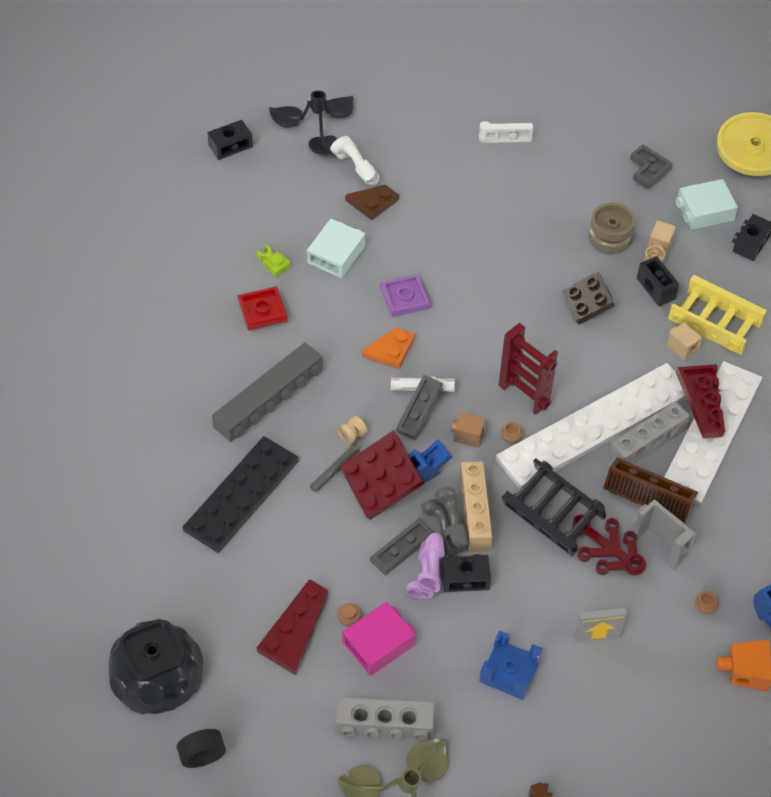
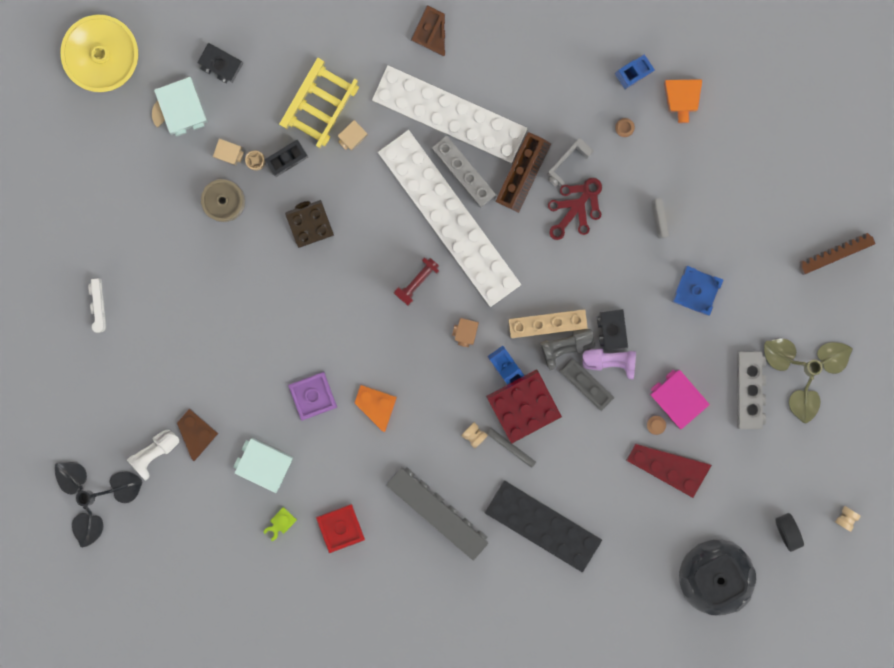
camera: 95 degrees left, 35 degrees up
(229, 139) = (128, 571): black brick -> none
(411, 384) = (418, 374): white pin -> none
(419, 407) = (445, 376): dark grey tile -> none
(511, 432) = (463, 293): medium nougat plate -> none
(550, 528) = (552, 274): black fence -> none
(652, 166) = (131, 155): dark grey plate -> none
(702, 394) = (419, 122): dark red wing -> none

